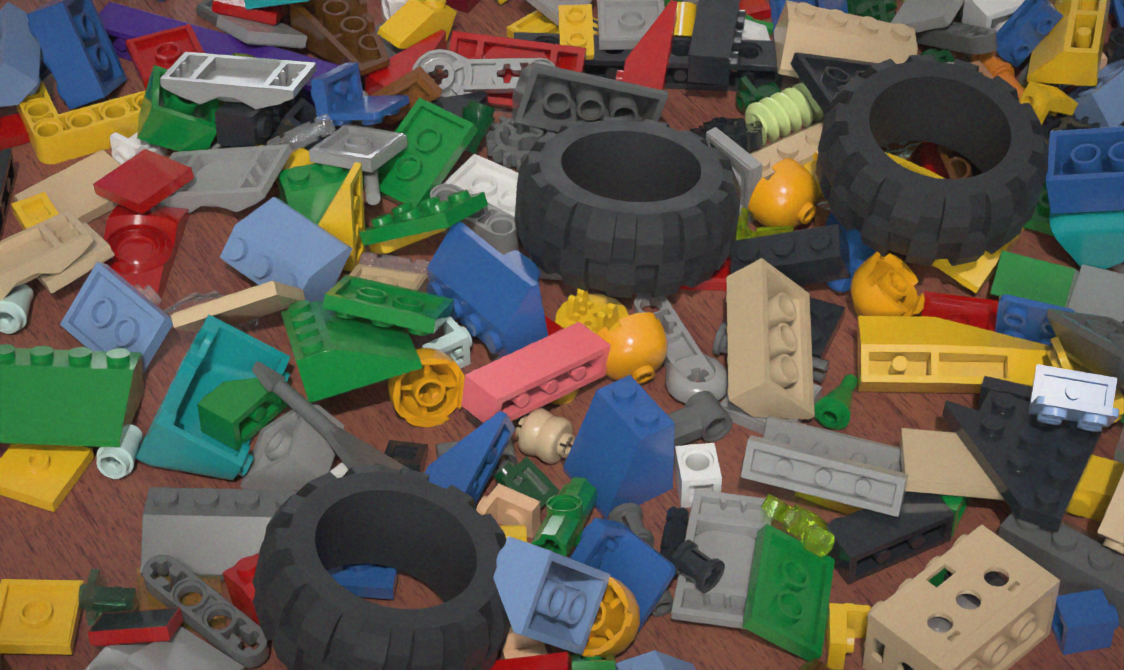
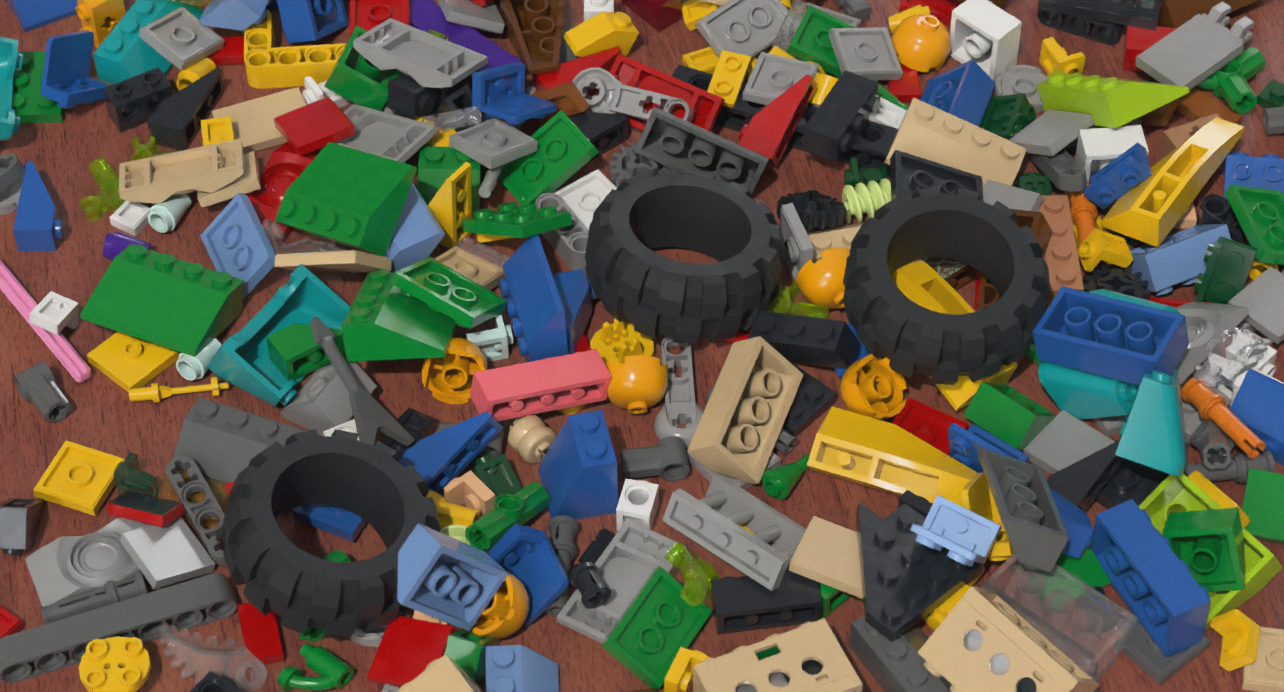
camera: 20 degrees right, 5 degrees up
(87, 500) = (159, 392): none -> yellow piece
(227, 237) = (348, 198): none -> green slope
(482, 118) = (606, 140): dark green cone -> none

